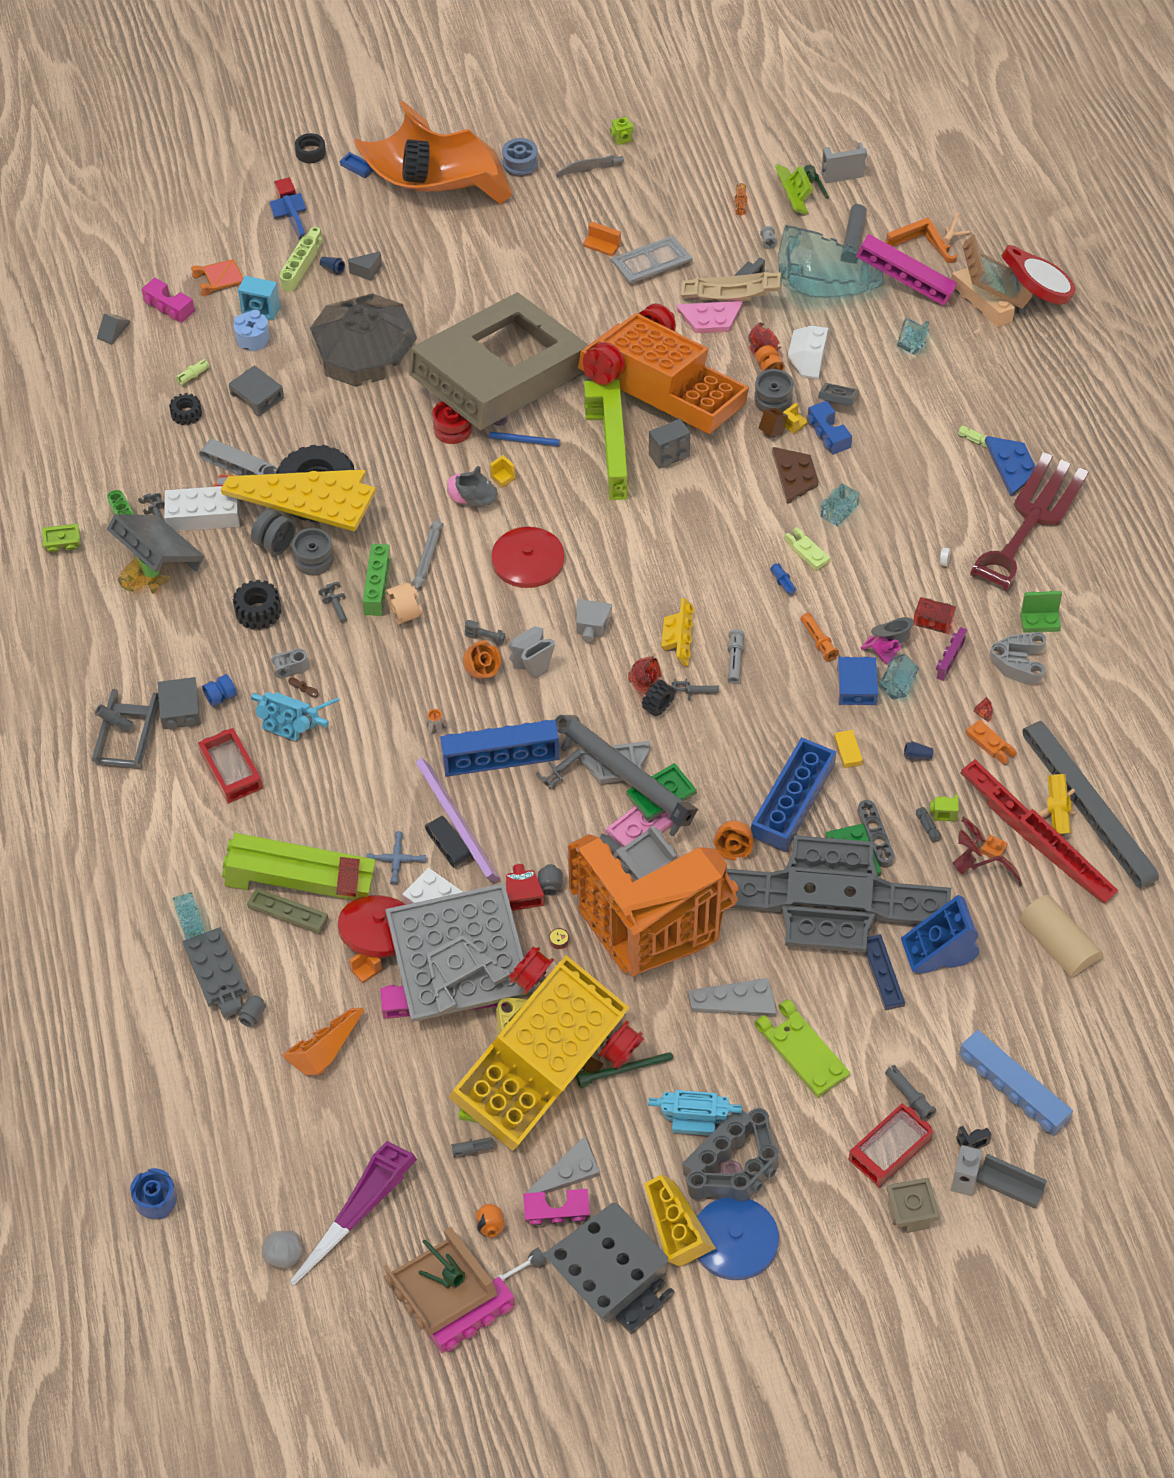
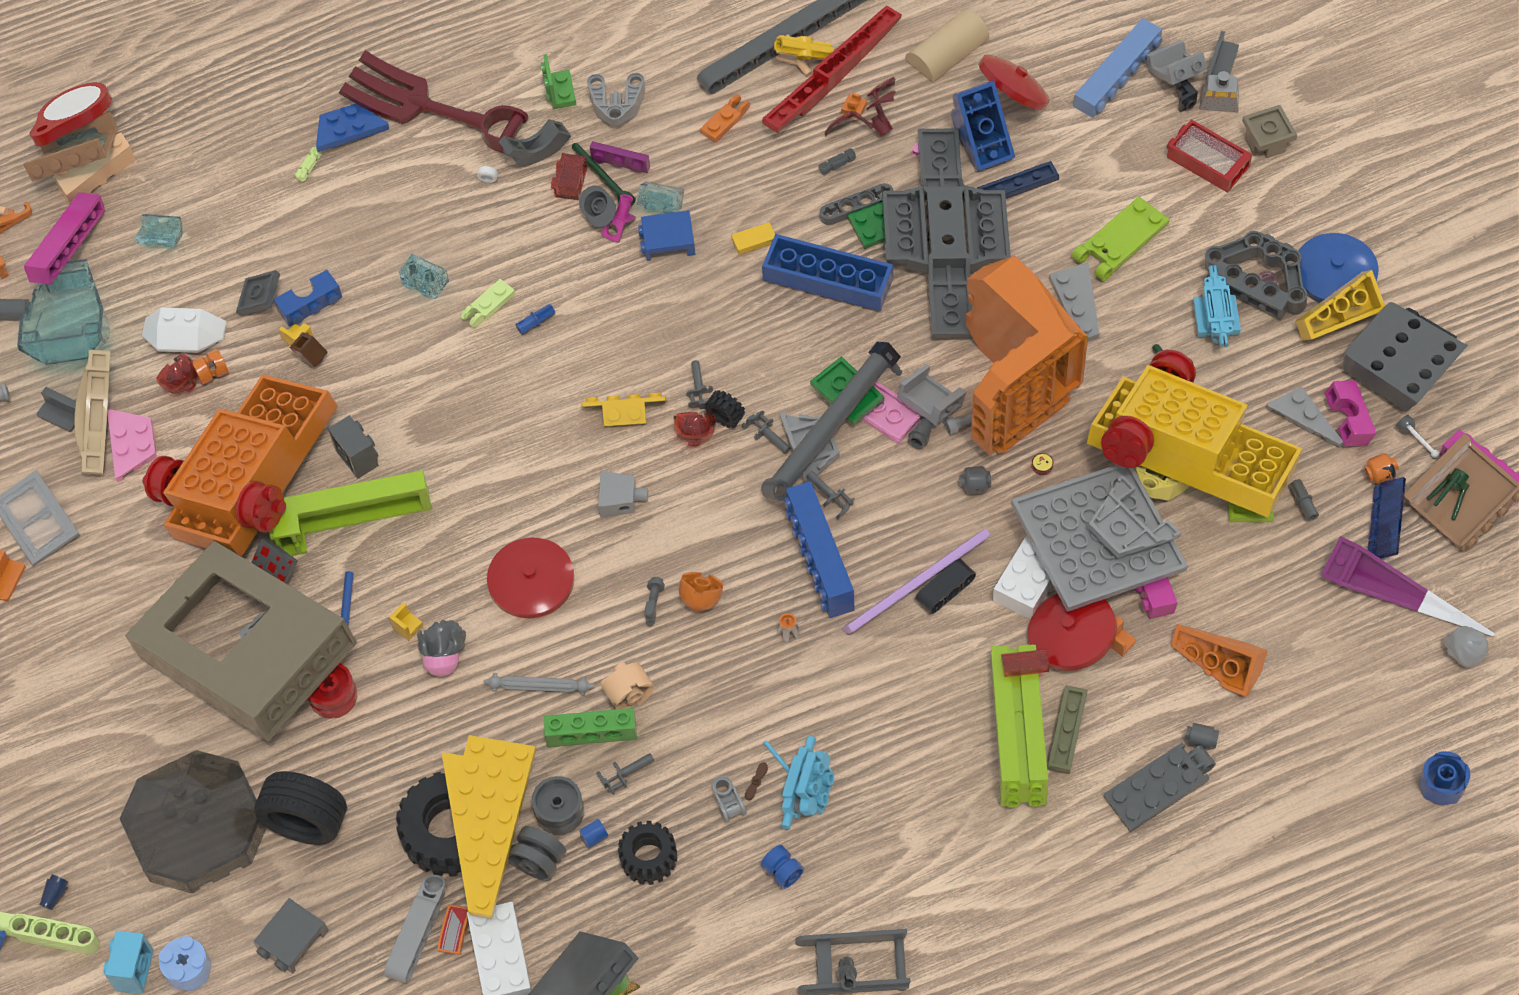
camera: 95 degrees left, 5 degrees up
(179, 703) = (807, 909): dark grey brick -> none
(188, 915) = (1101, 826): clear light blue brick -> none
(230, 765) = (885, 832): red window -> none
(285, 574) = (593, 833): none -> blue brick
(344, 387) = (300, 807): none -> black tyre
(366, 265) = (58, 845): dark grey slope -> none
(397, 857) = (973, 636): sand blue piece -> none
(427, 1209) = (1386, 518): none -> clear blue windscreen
(523, 889) = (992, 504): red torso -> none
(532, 651) = (682, 538): light grey piece -> none
(568, 390) = (274, 560): none -> dark grey tile
(637, 731) = (765, 430): none -> dark grey piece
(734, 840) = (892, 318): orange cylinder -> none
(735, 649) = (644, 351): light grey pin -> none
(773, 390) = (259, 353): dark grey wheel -> none
(795, 472) = (376, 327): reddish brown wing -> none
(823, 642) = (619, 272): orange pin -> none
(916, 1100) = (1154, 142): dark grey pin -> none
(917, 751) = (749, 180): dark blue cone -> none
(933, 642) = (601, 173): none -> dark green piece
(944, 808) = (817, 145): lime brick -> none
(972, 596) = (537, 147): none -> dark grey arch
(984, 709) = (684, 128): clear red tile -> none
(992, 971) = (1014, 82): none -> red dish
(1009, 1131) = (1174, 64): none -> light grey panel

